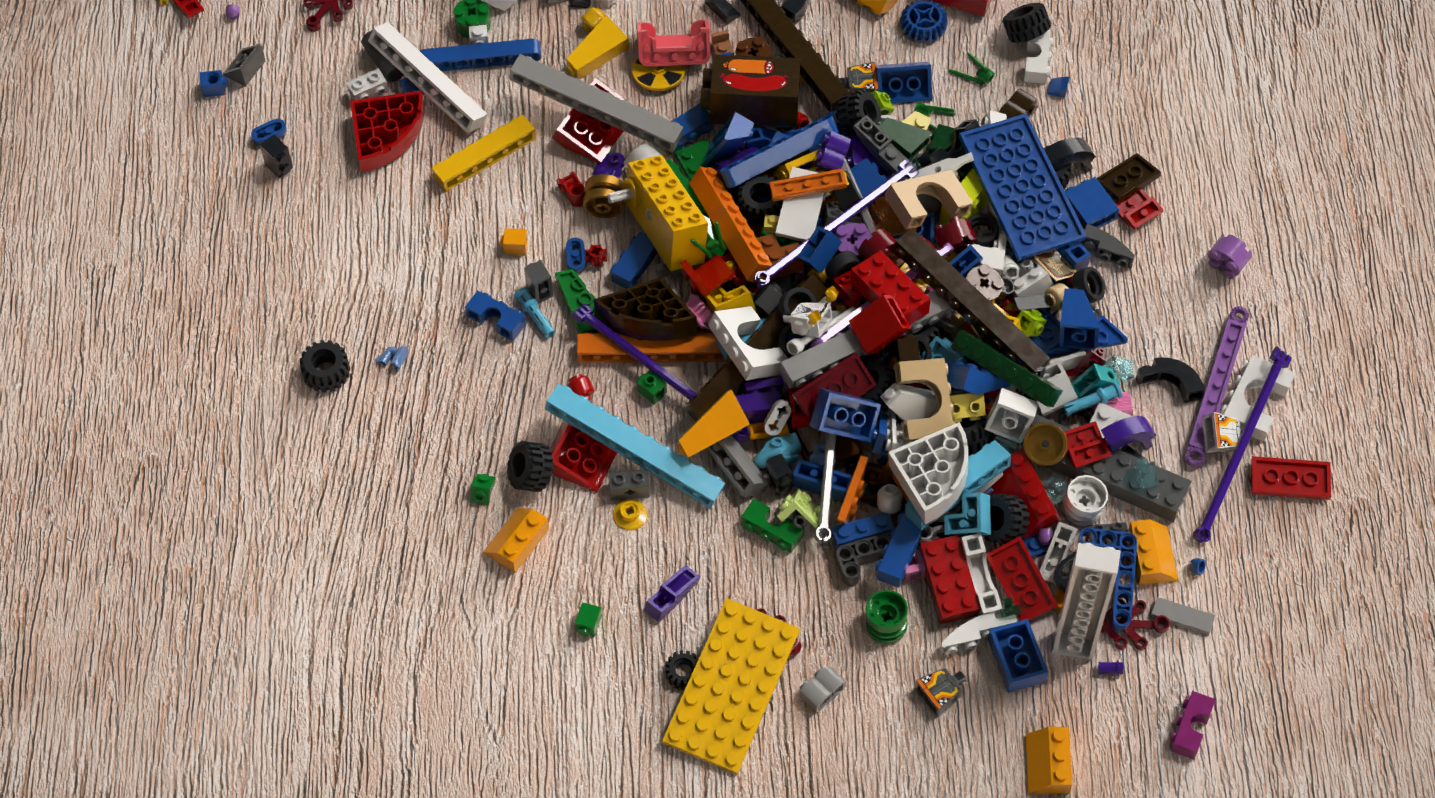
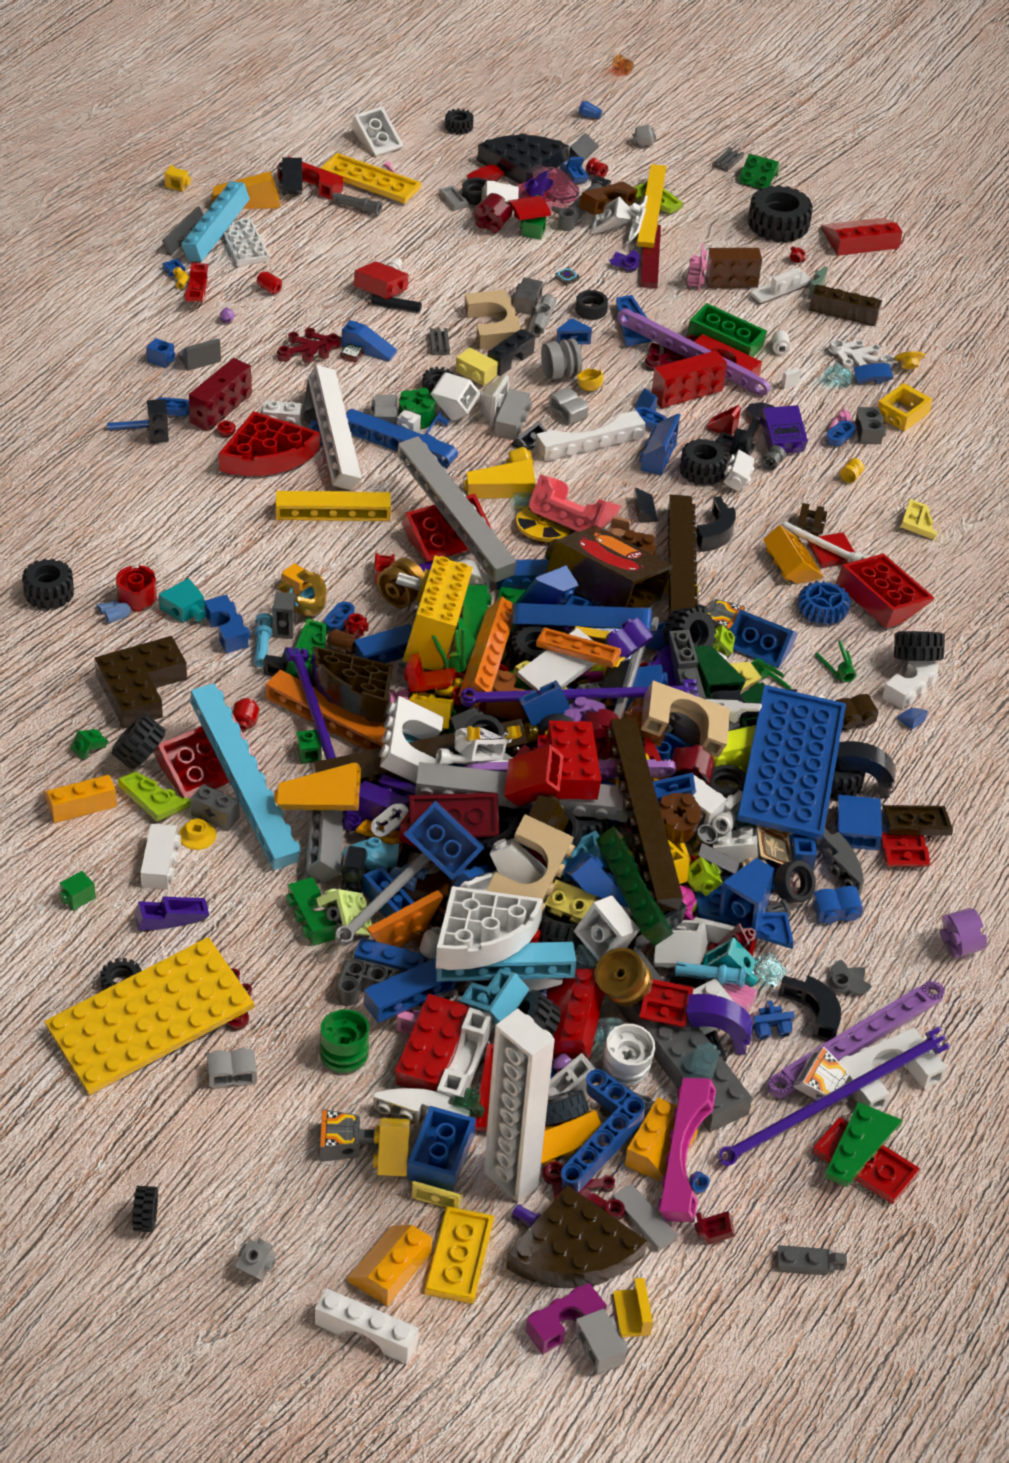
camera: 30 degrees right, 15 degrees down
(246, 171) = (127, 425): none -> blue bar
(305, 98) = (220, 394): none -> dark red brick
(331, 131) = (226, 428): none -> red plate
(398, 326) = (136, 587): none -> red brick
(445, 316) = (183, 601): none -> teal torso
(446, 32) = (385, 408): none -> light grey brick
(466, 412) = (135, 673): none -> dark brown brick
(494, 15) = (441, 419): none -> blue piece
(542, 248) = (312, 597): none -> pearl gold piece
(564, 327) = (273, 664): none -> black panel
(572, 505) = (152, 798): none -> lime wing
(597, 277) = (341, 641): none -> reddish brown brick
(623, 551) = (160, 856): none -> white brick
(625, 57) = (522, 500): none -> clear light blue tile
(985, 673) = (393, 1146): none -> yellow brick
(1038, 691) = (435, 1195): none -> light yellow slope
(1087, 724) = (459, 1255): none -> yellow tile
(1127, 284) = (837, 904): none -> blue brick
(1158, 667) = (575, 1245): none -> dark brown brick
(1160, 405) = (771, 1017): none -> blue hips
(1163, 510) = (695, 1104): none -> dark pink arch
(1176, 339) = (848, 979): none -> dark grey plate
(1229, 688) = (633, 1310): none -> yellow panel
(1229, 726) = (601, 1341): none -> light grey brick
(1235, 593) = (715, 1227): none -> dark red bracket
(1280, 463) = (860, 1142): none -> green wing
(1308, 577) = (809, 1260): none -> dark grey hinge

